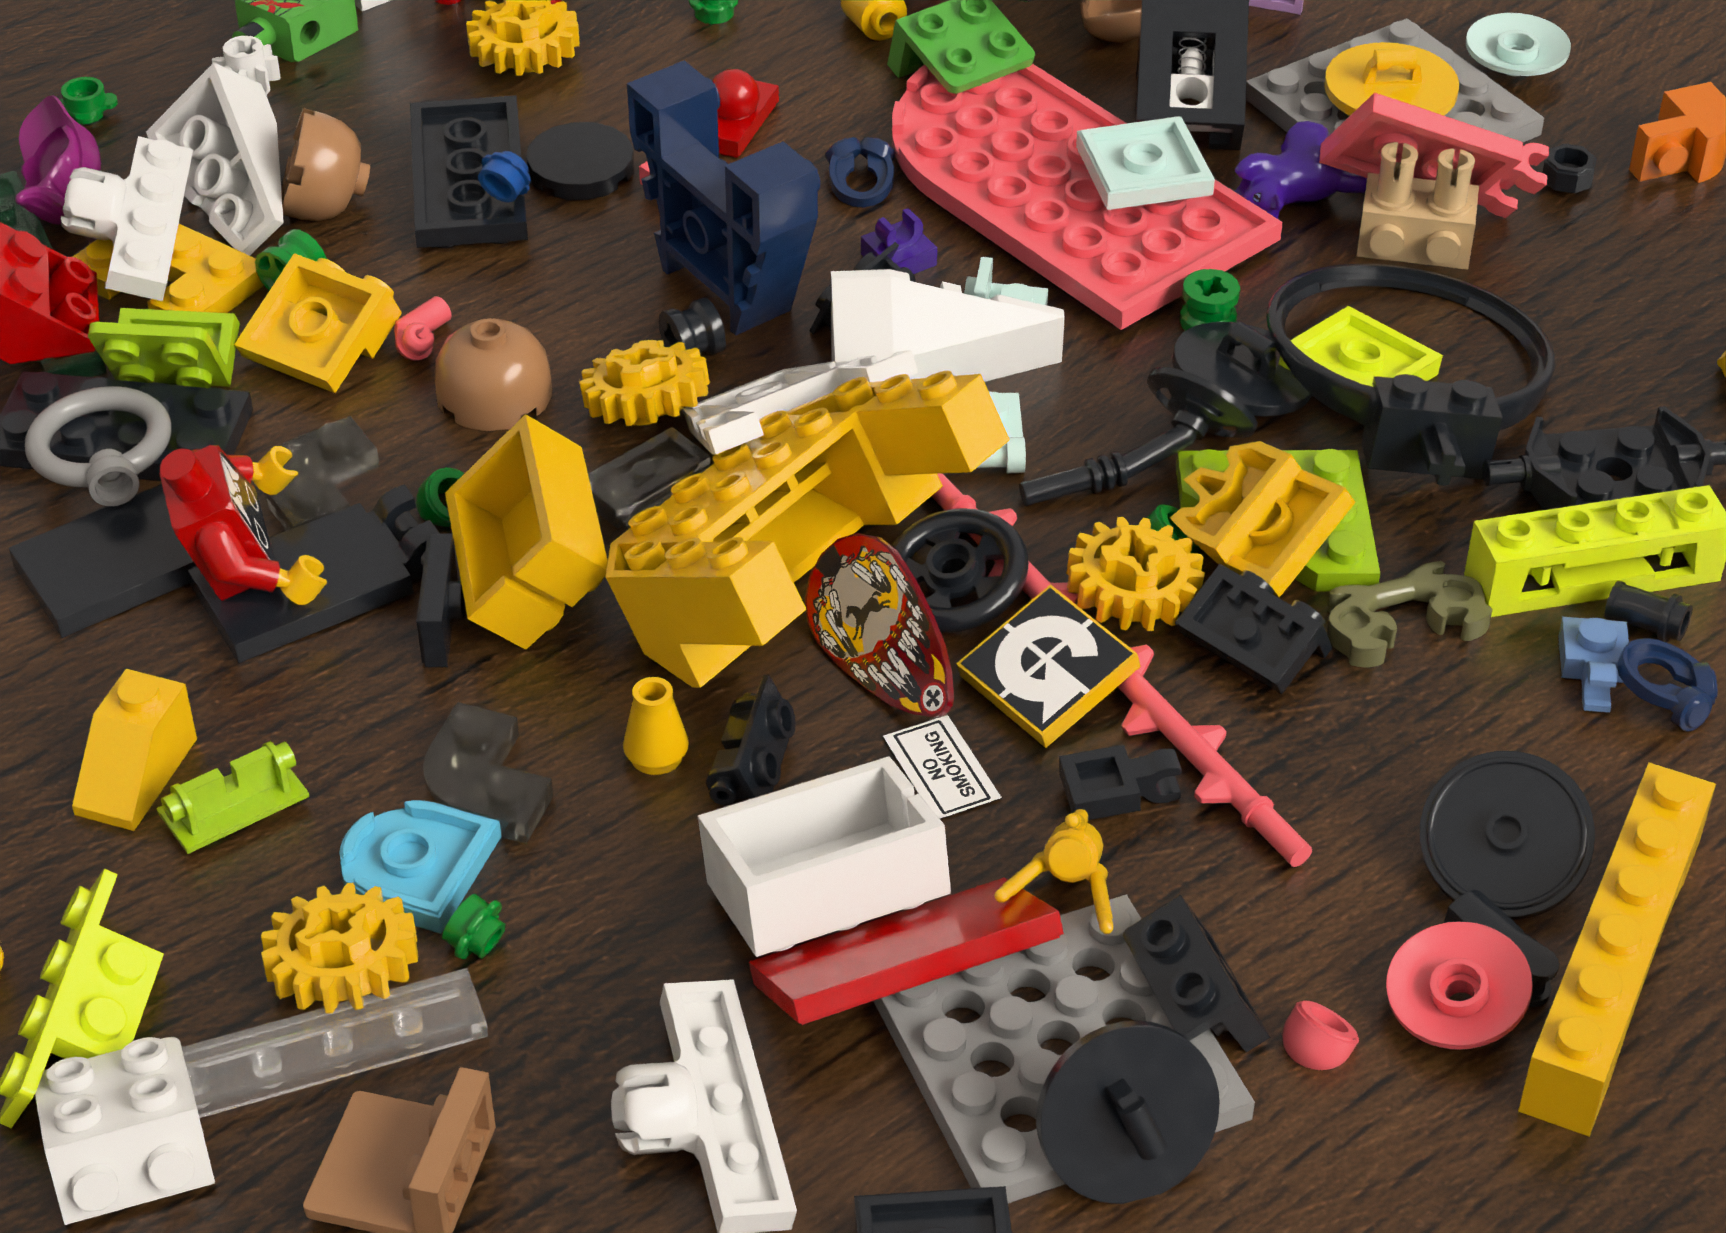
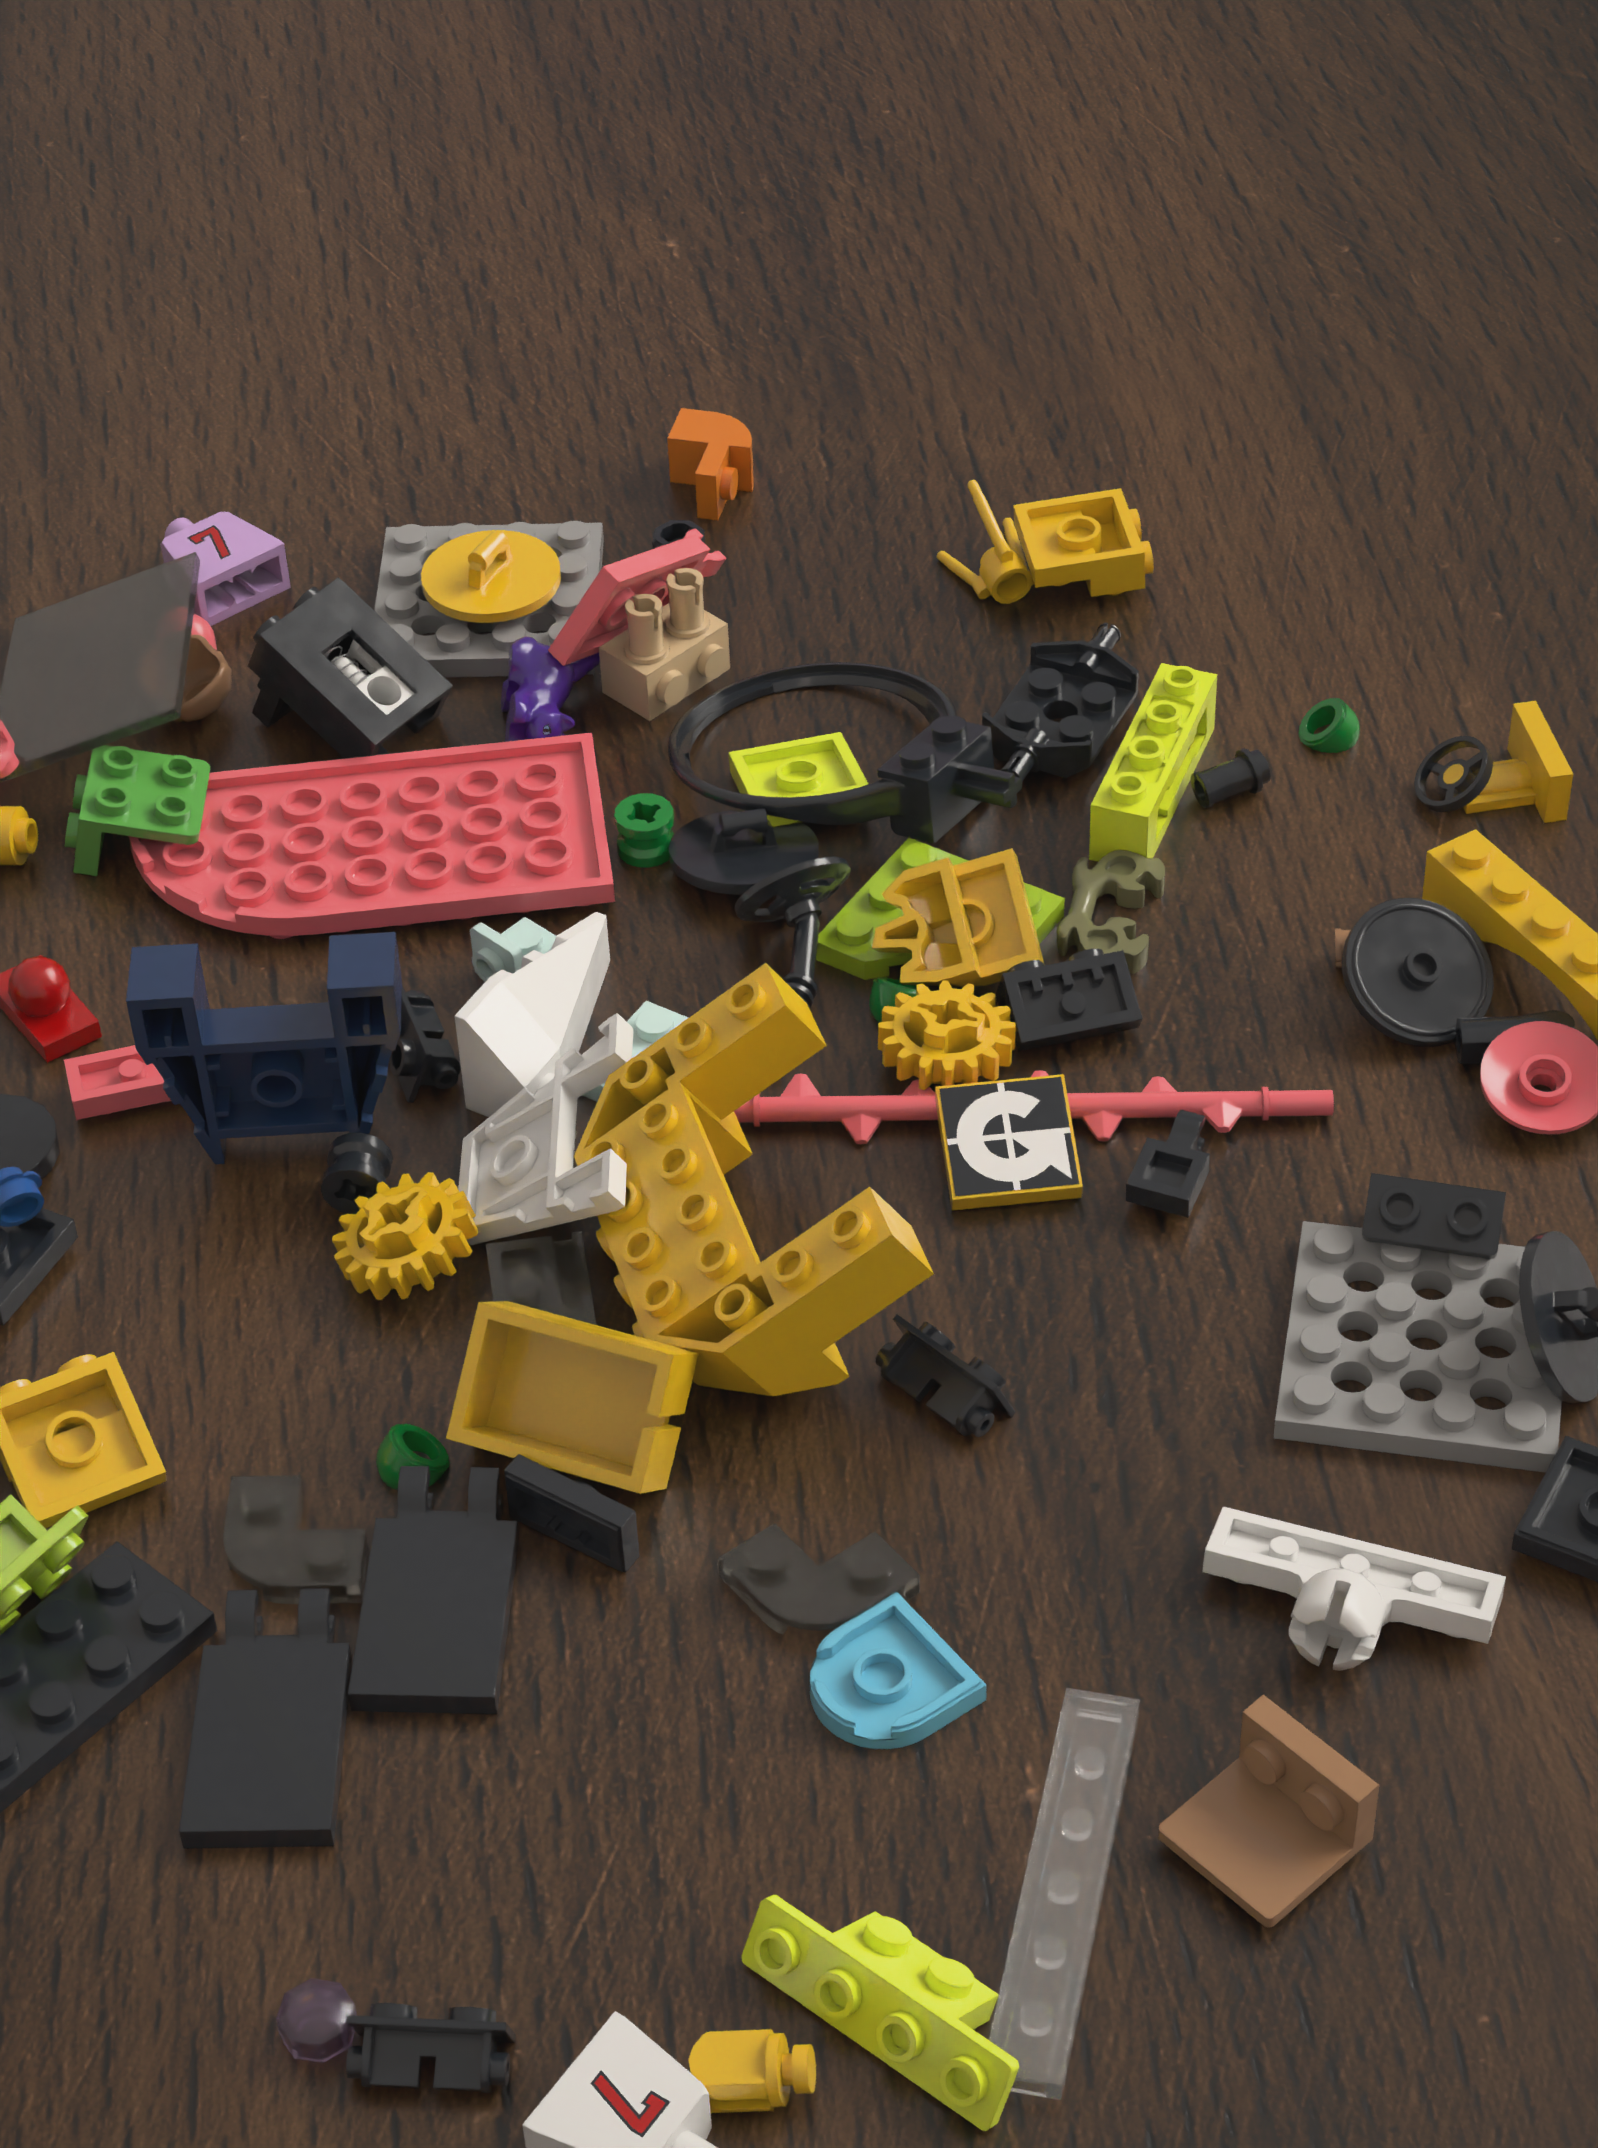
camera: 55 degrees left, 0 degrees up
(104, 488) = (174, 1689): light grey piece -> none
(121, 1129) = (1088, 2007): white bracket -> none
(133, 748) = (586, 1829): yellow slope -> none
(221, 805) = (706, 1779): lime hinge -> none
(223, 523) = (368, 1609): red torso -> none
(339, 947) = (1018, 1758): yellow gear -> none
(414, 330) = (147, 1383): coral arm -> none
(474, 927) = (1018, 1663): green plate -> none
(492, 375) = (274, 1345): medium nougat cylinder -> none
(654, 731) = (880, 1430): yellow cone -> none
(824, 855) = (1146, 1394): white piece -> none
(879, 625) = (947, 1215): shield -> none
(880, 163) = (231, 941): dark blue piece -> none
(903, 951) = (1277, 1380): red tile -> none
(942, 767) = (1050, 1272): white sticker -> none
(953, 554) = (841, 1099): black plate -> none
(1070, 856) = (1242, 1228): yellow plant -> none
(1144, 163) = (446, 768): light aqua plate -> none
(1318, 1036) = (1526, 1189): coral piece -> none
(1518, 44) = (497, 484): light aqua dish -> none
(1591, 653) = (1249, 831): medium blue plate -> none
(1689, 705) = (1326, 793): dark blue piece -> none

